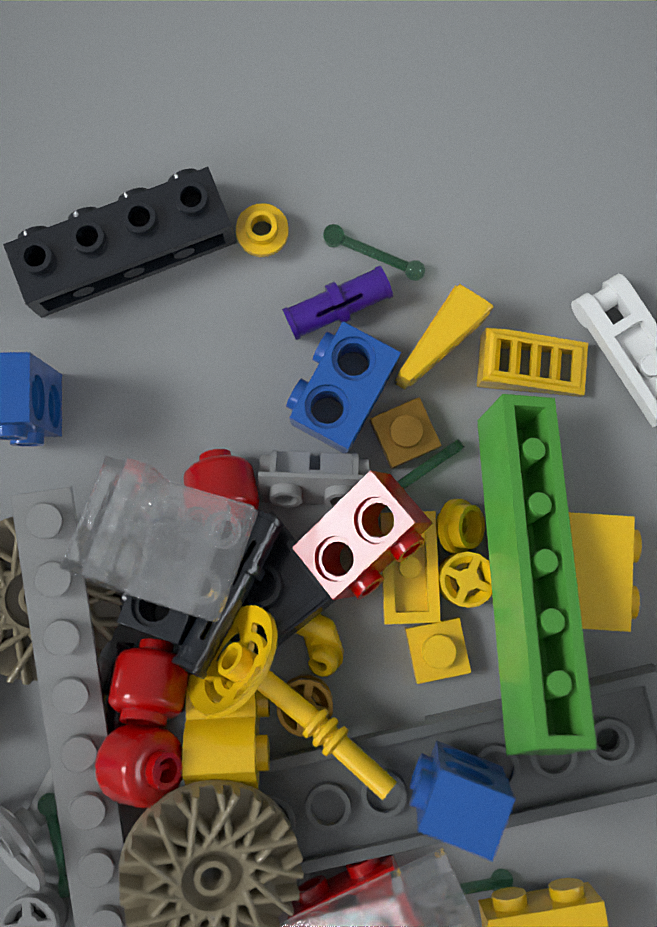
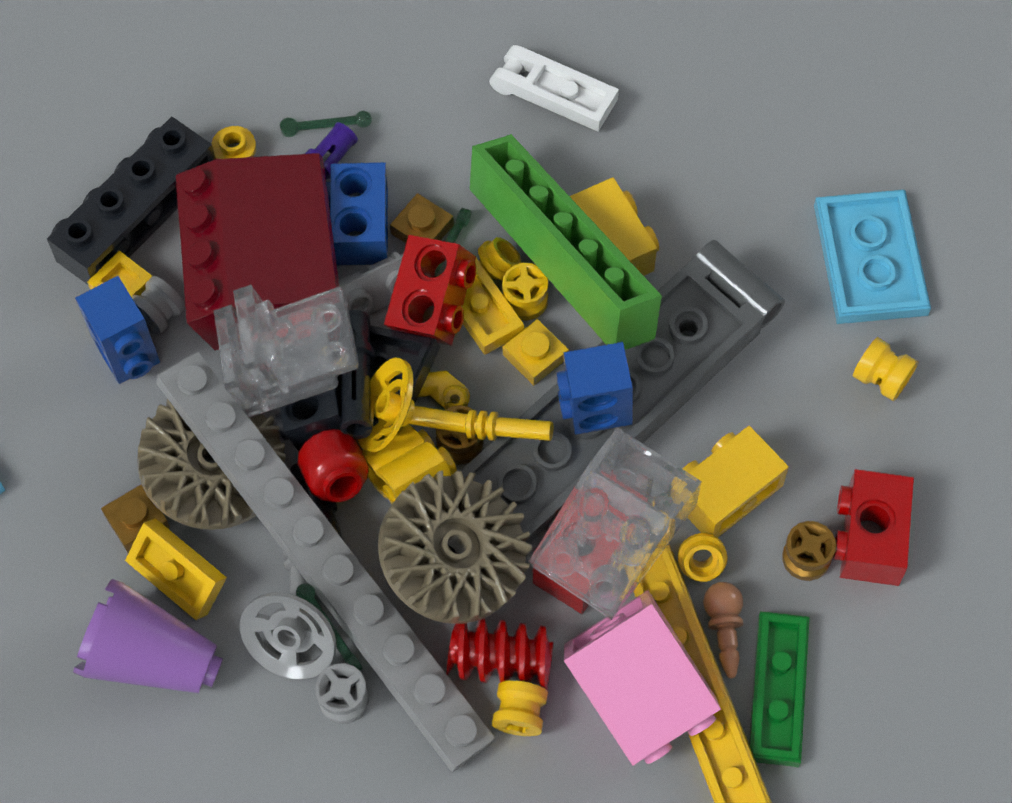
camera: 30 degrees left, 20 degrees down
(62, 330) = (129, 272): none -> yellow plate
(81, 378) = (159, 304): none -> light grey wheel
(139, 765) = (357, 507): red head -> none
(211, 375) = (253, 226): none -> dark red slope
(453, 323) = (412, 134): yellow slope -> none
(489, 358) = (466, 124): yellow slope -> none

